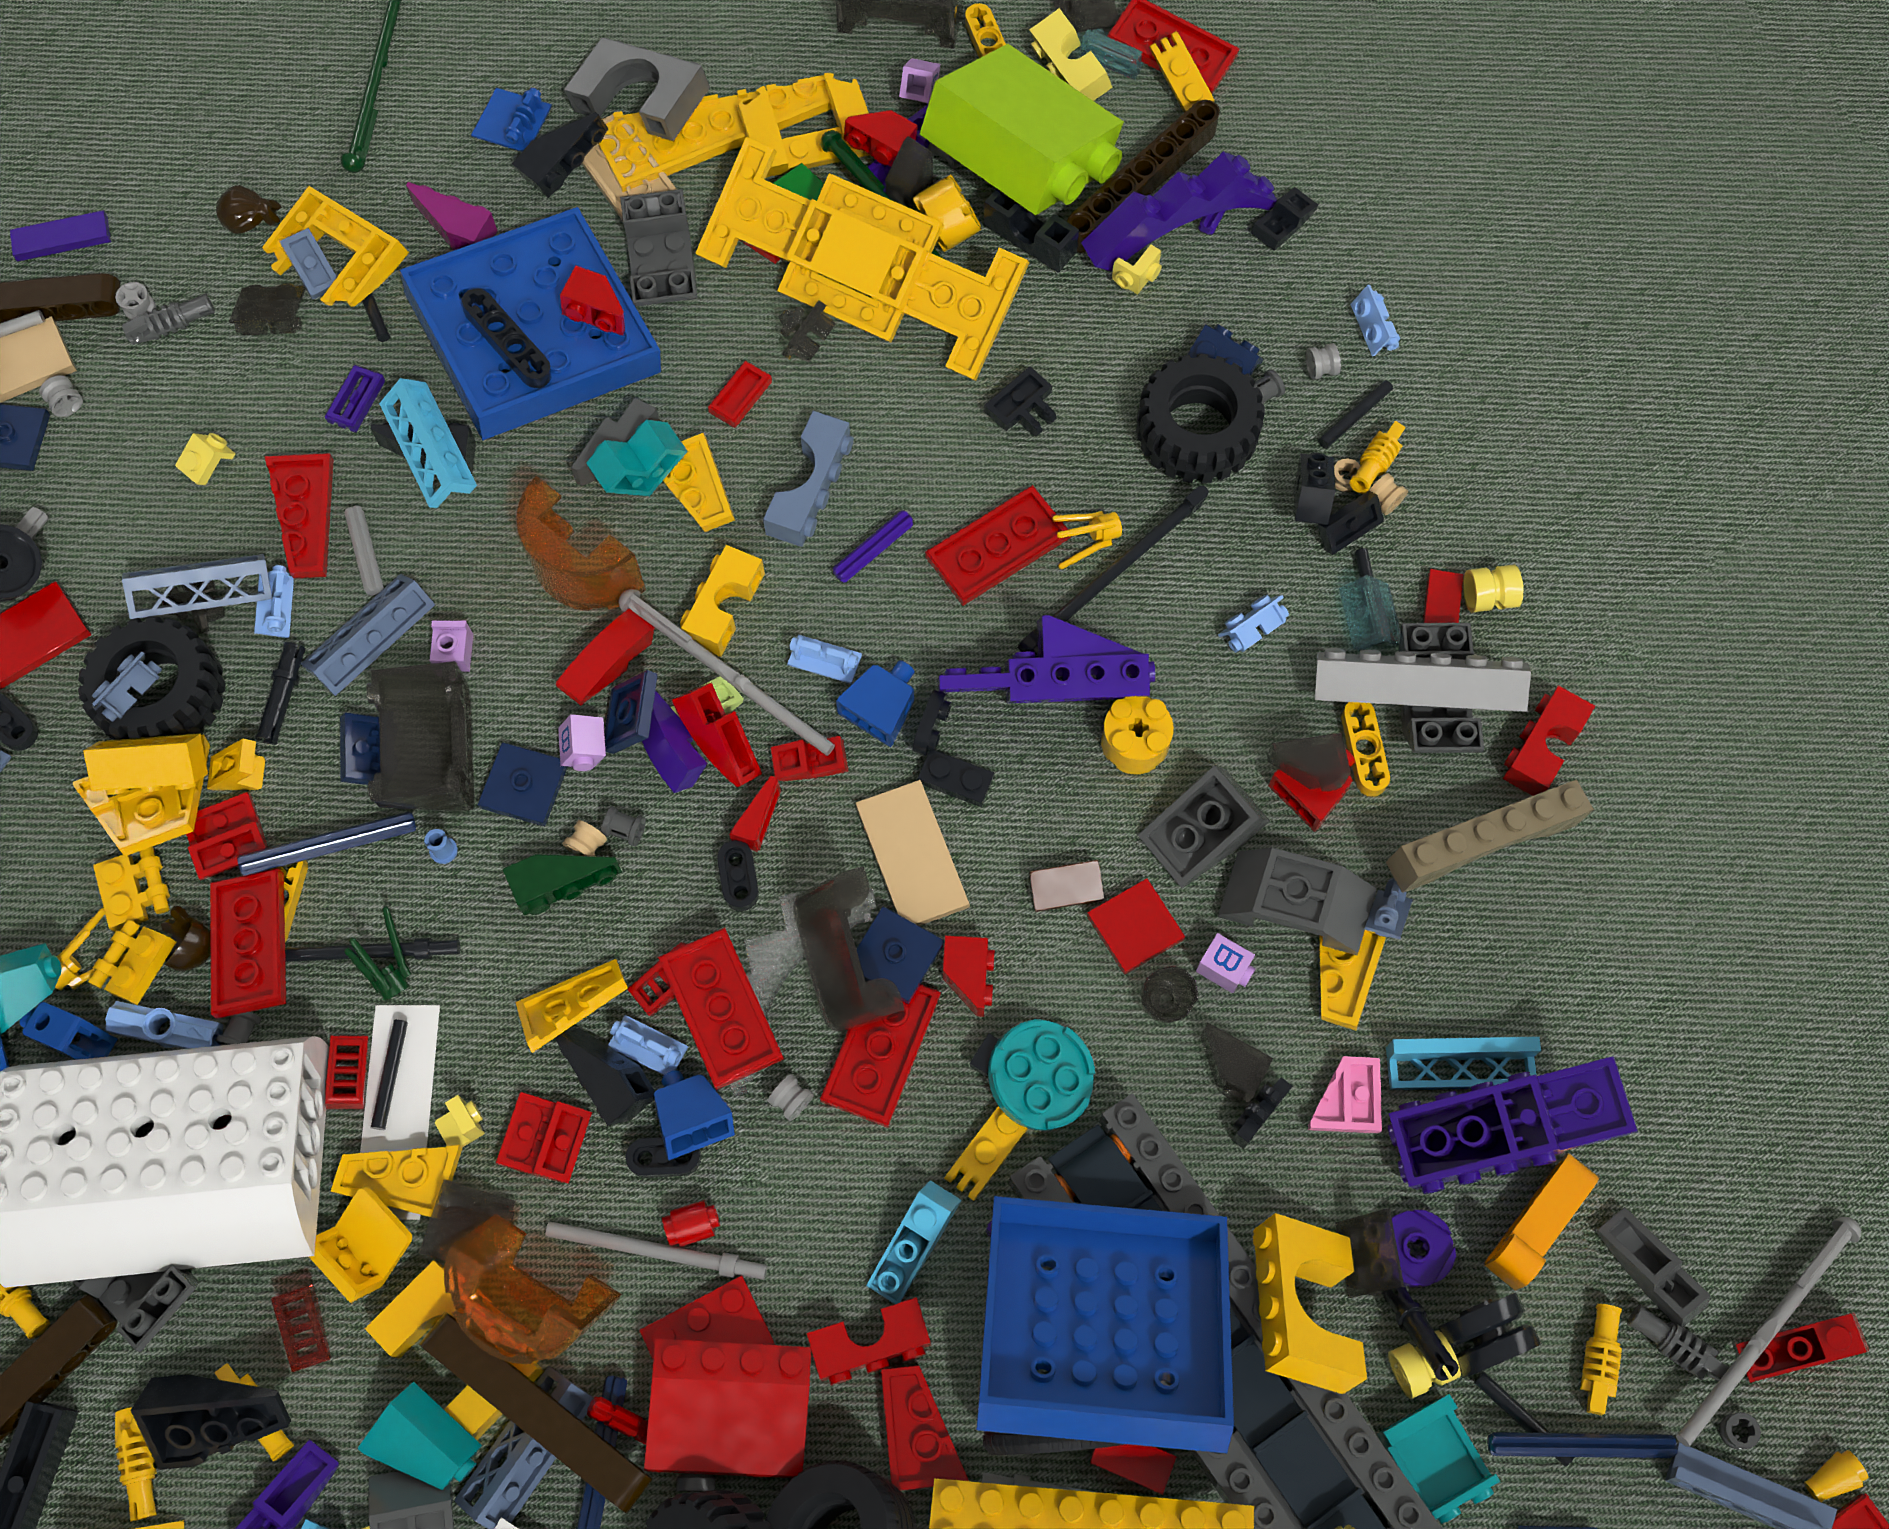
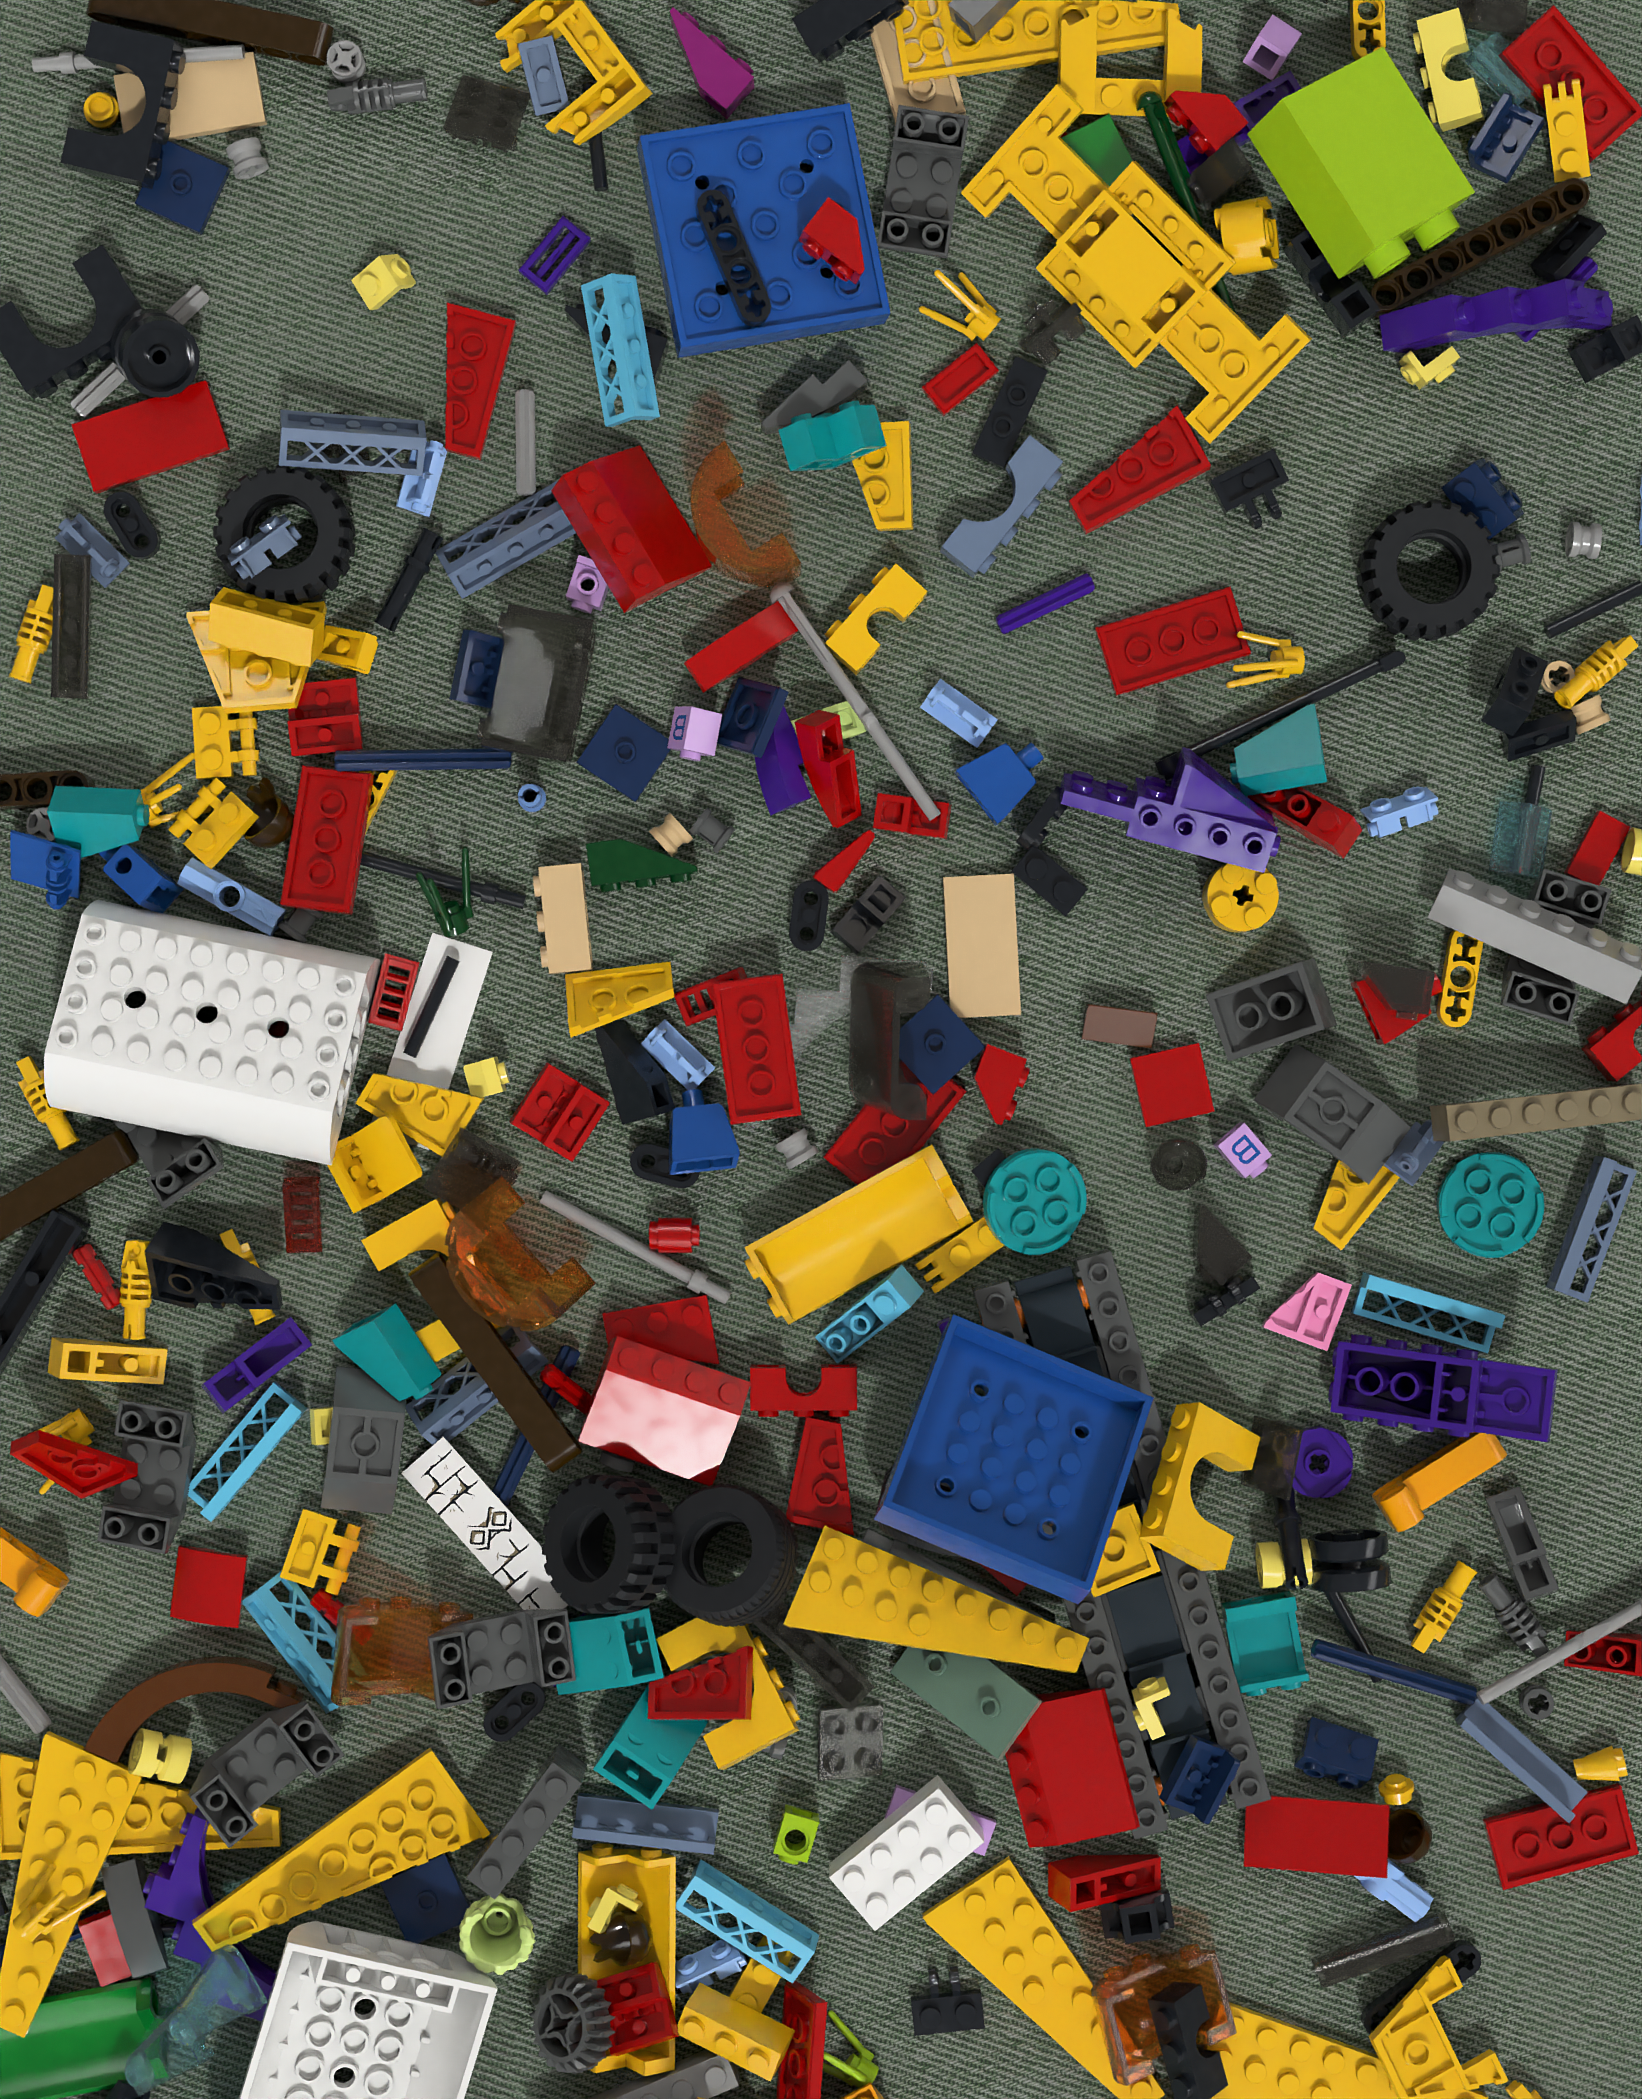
camera: 20 degrees right, 20 degrees up
(92, 1462) = (97, 1276): none -> red axle
(472, 585) = (630, 526): none -> red slope
(500, 948) = (563, 918): none -> tan brick
(741, 340) = (981, 316): none -> yellow plant
(791, 407) = (1009, 413): none -> black plate
(795, 858) = (868, 914): none -> black slope
(876, 1164) = (858, 1235): none -> yellow cylinder
(932, 410) = (1150, 468): none -> red wing
(1130, 602) = (1281, 756): none -> teal slope
(1133, 93) = (1503, 139): none -> dark blue bracket
(1176, 648) = (1312, 818): none -> red slope
(1223, 140) = (1568, 248): none -> black plate
(1258, 1398) = (1125, 1553): none -> yellow plate
(1479, 944) = (1490, 1204): none -> teal tile
(1575, 935) = (1583, 1225): none -> sand blue fence

